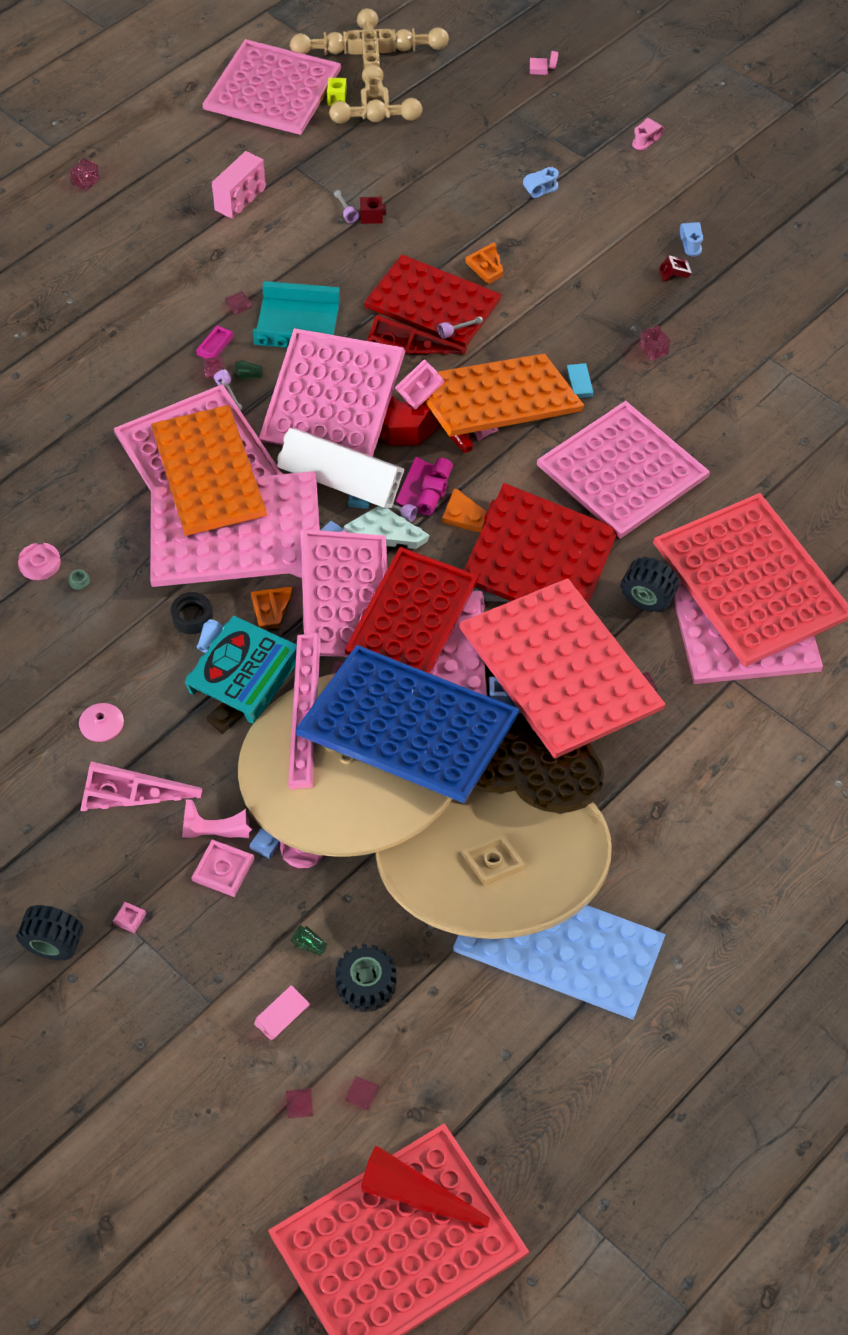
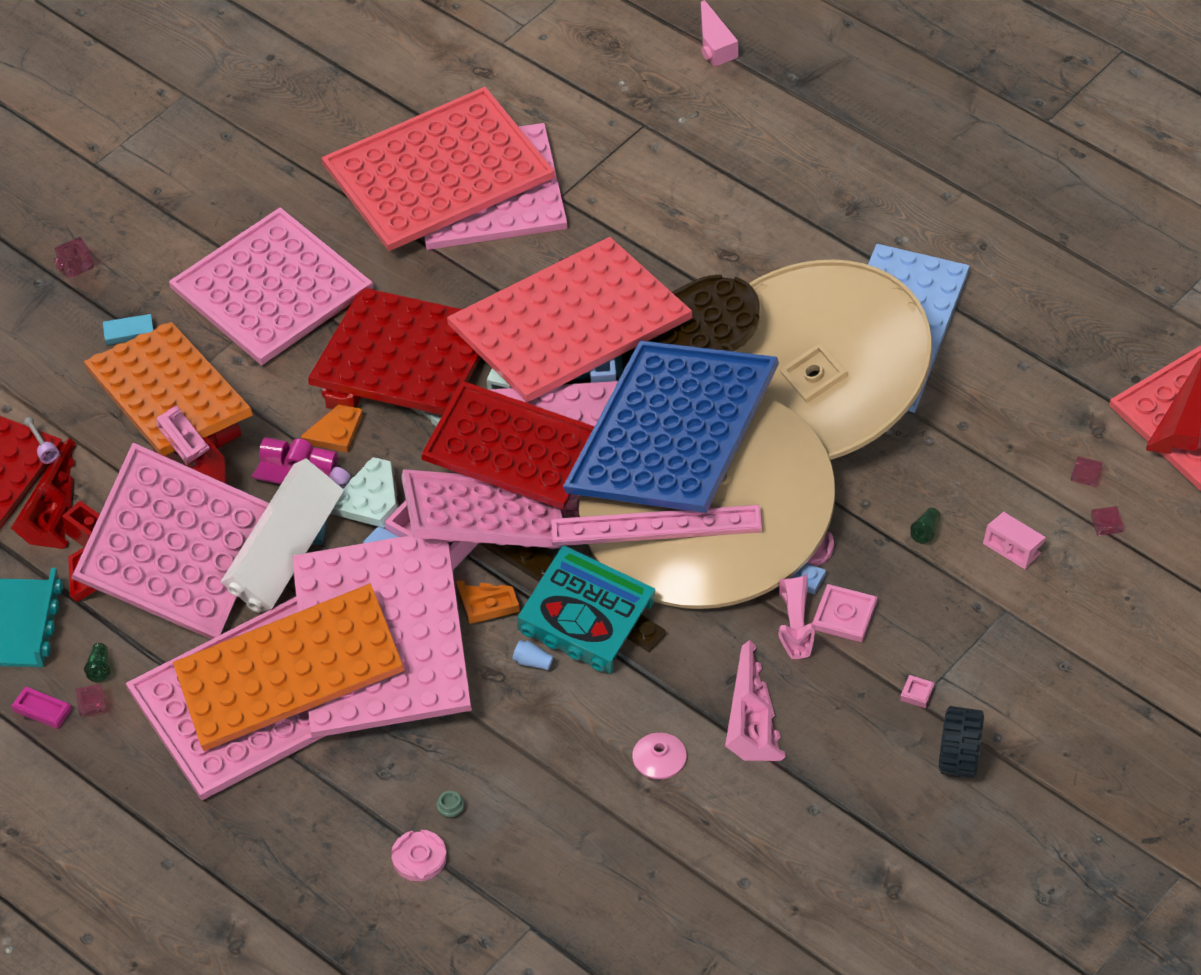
camera: 90 degrees left, 5 degrees down
(186, 600) = (503, 693): black tyre -> none
(223, 377) = (113, 686): lavender hinge -> none
(366, 977) = (964, 469): black wheel -> none
(649, 584) = (453, 247): black wheel -> none

